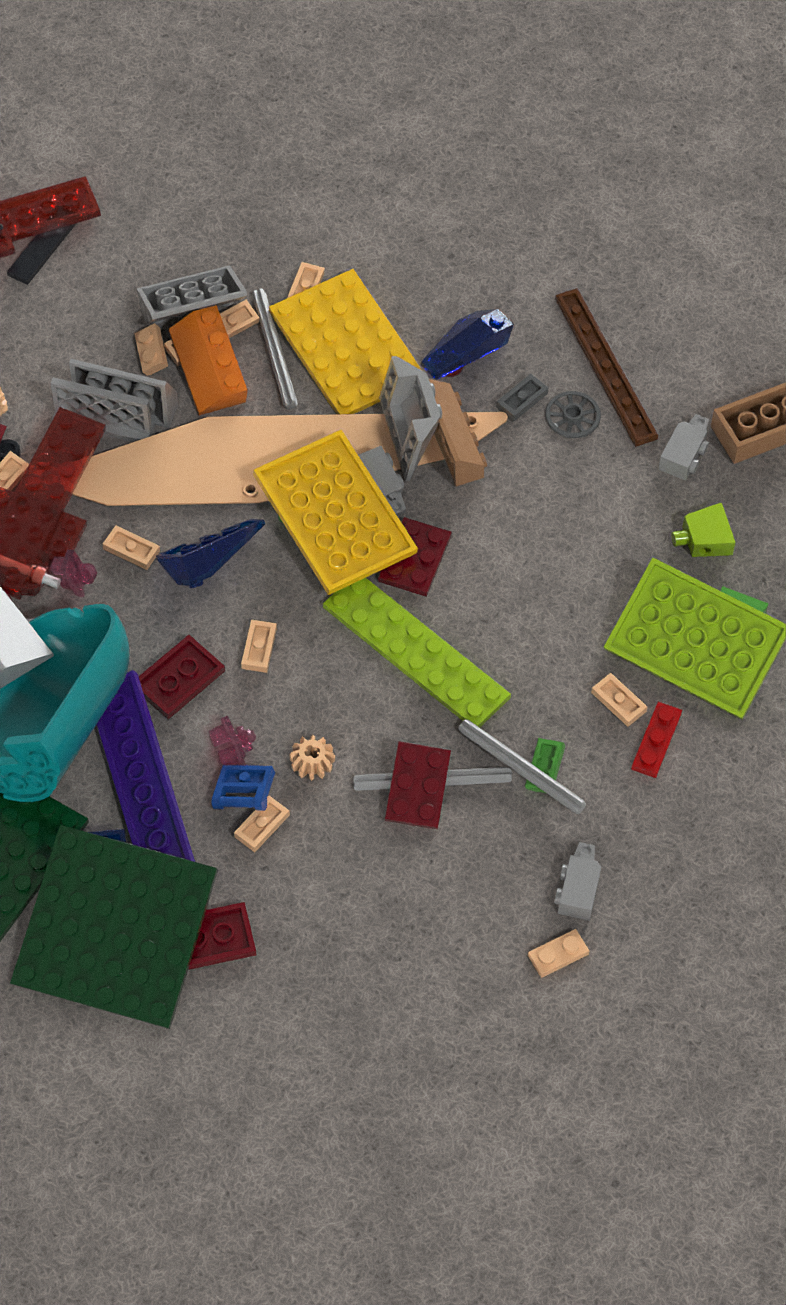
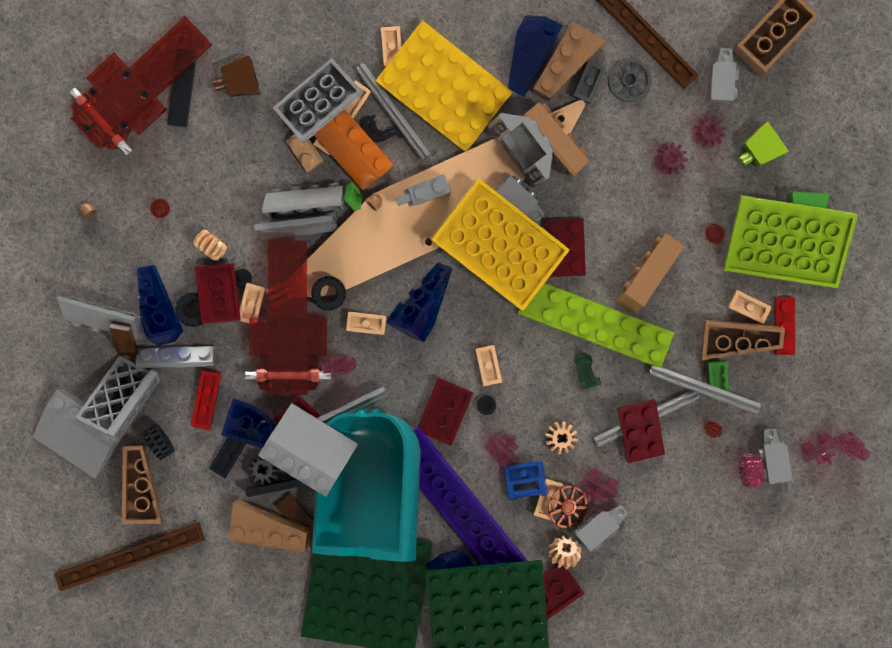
camera: 20 degrees left, 30 degrees up
(99, 482) = (316, 293): none -> black tyre
(112, 255) = (238, 79): none -> reddish brown torso
(184, 410) = (353, 196): none -> bright green plate
(206, 421) = (374, 201): none -> medium nougat hinge
(235, 691) = (486, 405): none -> black tile
(250, 368) = (376, 135): none -> black piece
(253, 888) = (564, 552): none -> light nougat gear
(270, 430) = (425, 191): none -> light grey hinge
(283, 840) = (568, 506): none -> copper wheel
(314, 879) = (600, 526): none -> light grey hinge
(333, 833) = (598, 489): none -> clear pink hips
(377, 691) = (584, 370): none -> clear green leg
(504, 365) = (570, 56): none -> medium nougat wedge
(504, 613) = (649, 274): none -> medium nougat wedge
(513, 820) = (713, 429): none -> clear red plate
(542, 881) = (751, 470): none -> clear pink gear
(558, 953) = (777, 511): light nougat plate -> none
(587, 506) = (672, 151): none -> clear pink gear
(588, 721) = (734, 338): none -> medium nougat wedge
(609, 606) = (714, 233): none -> clear red plate
(645, 895) = (811, 452): none -> clear pink hips
(646, 494) = (703, 136): none -> clear pink gear
(689, 903) = (852, 446): none -> clear pink hips

